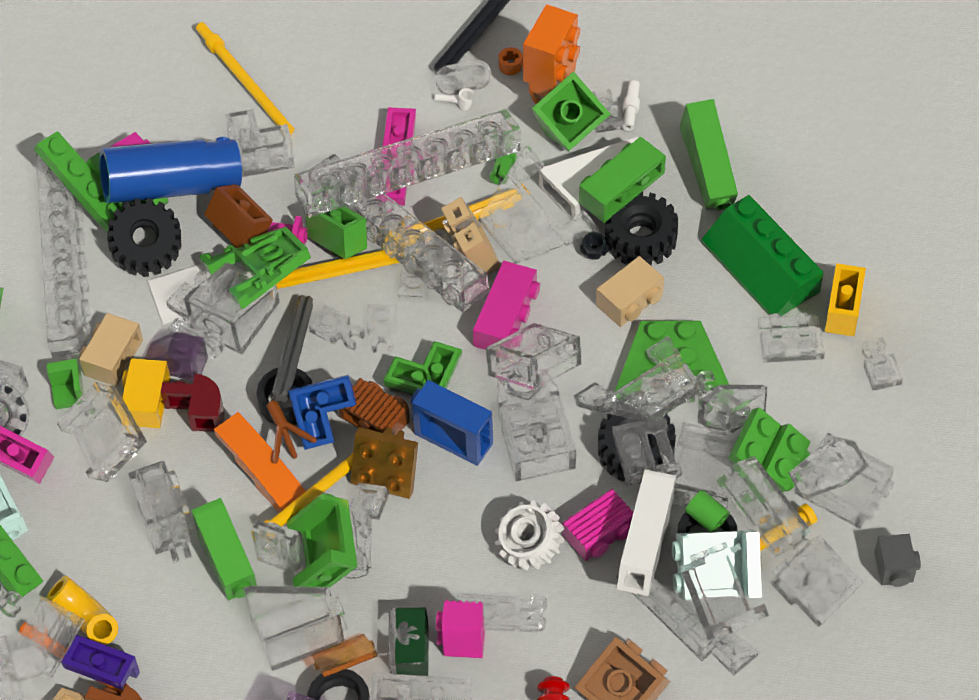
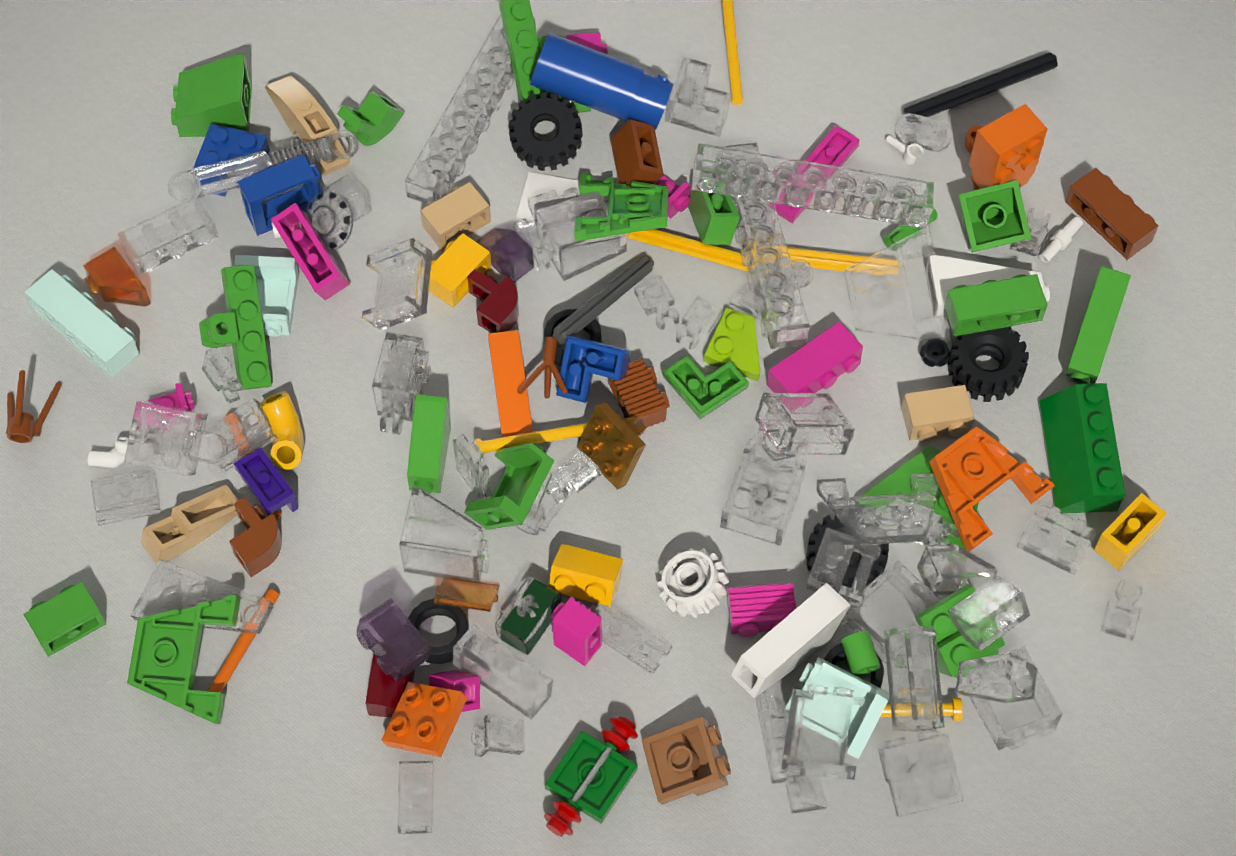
camera: 30 degrees right, 5 degrees up
(65, 382) = (402, 224): bright green panel -> none
(425, 324) = (735, 342): none -> lime wing
(435, 580) = (586, 574): none -> yellow brick
(452, 422) = (694, 443): blue window -> none
(462, 226) = (821, 270): tan piece -> none
(657, 63) = (1111, 213): none -> dark orange brick
(693, 320) = (972, 471): none -> orange wing
(787, 419) = (989, 612): none -> clear brick
(896, 560) = (1009, 799): dark grey brick -> none

